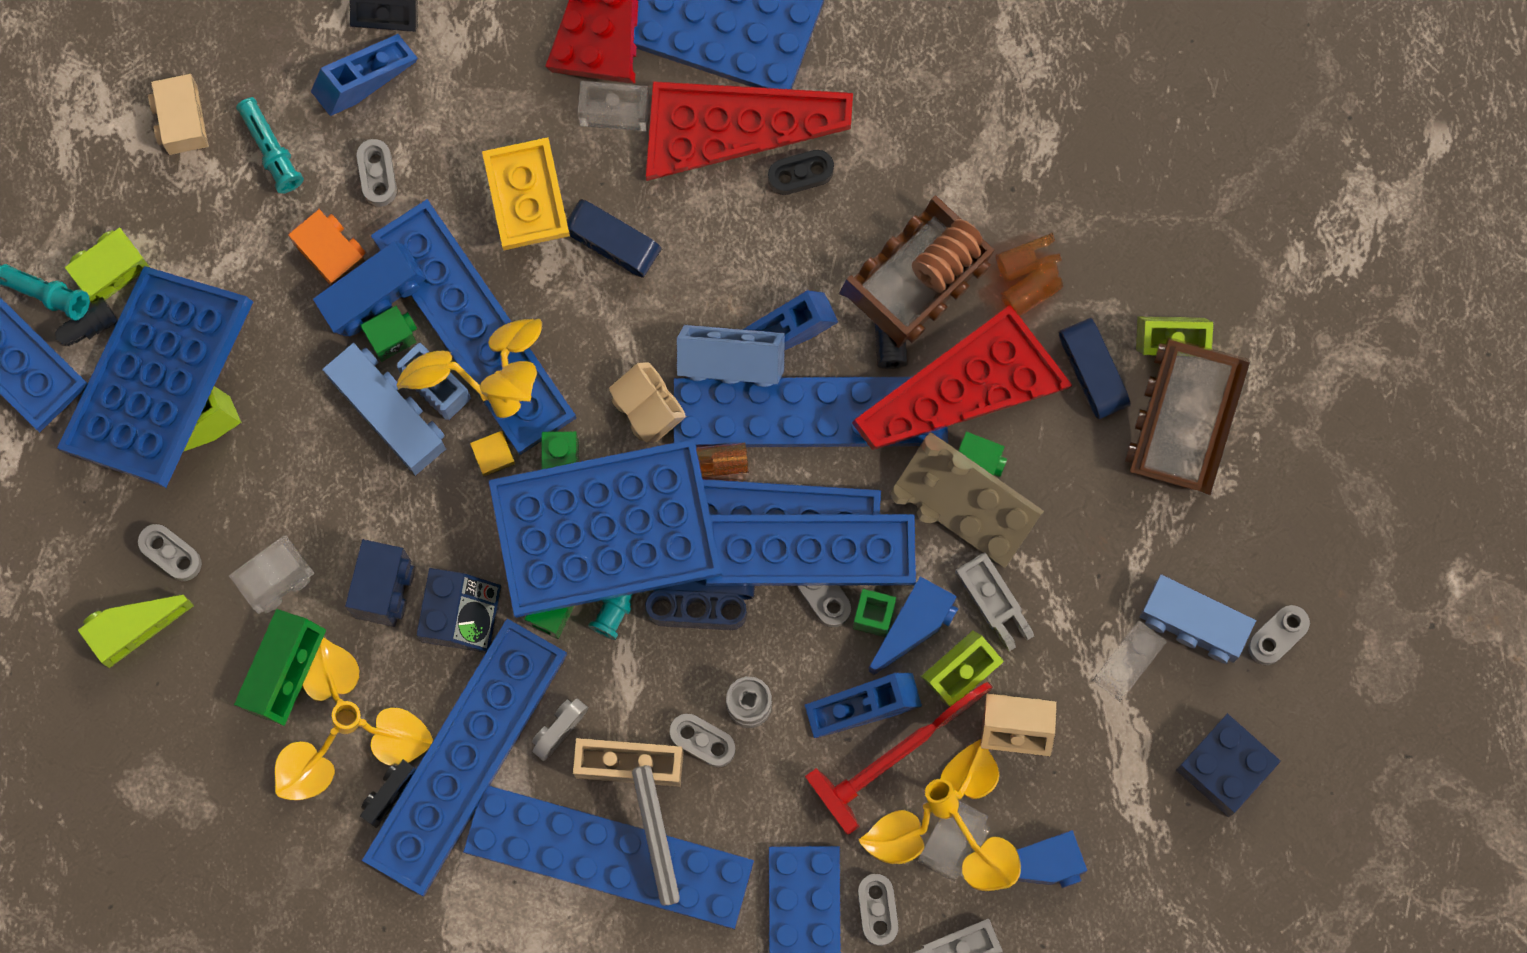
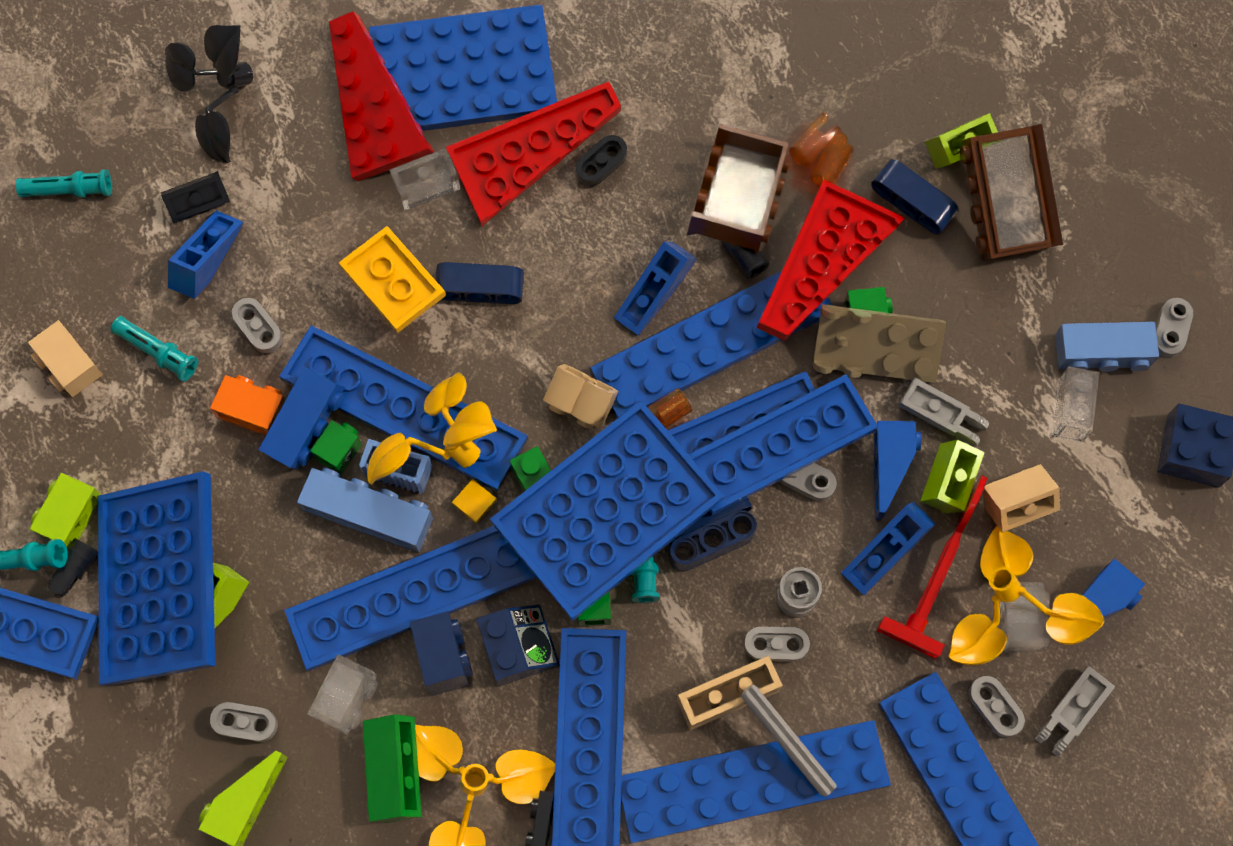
camera: 30 degrees left, 5 degrees down
(375, 509) = (412, 590): none -> blue plate
(568, 716) = (656, 682): light grey plate -> none
(730, 355) = (628, 324): medium blue brick -> none
(874, 613) = (857, 468): green brick -> none
(948, 255) = (758, 162): nougat piece -> none

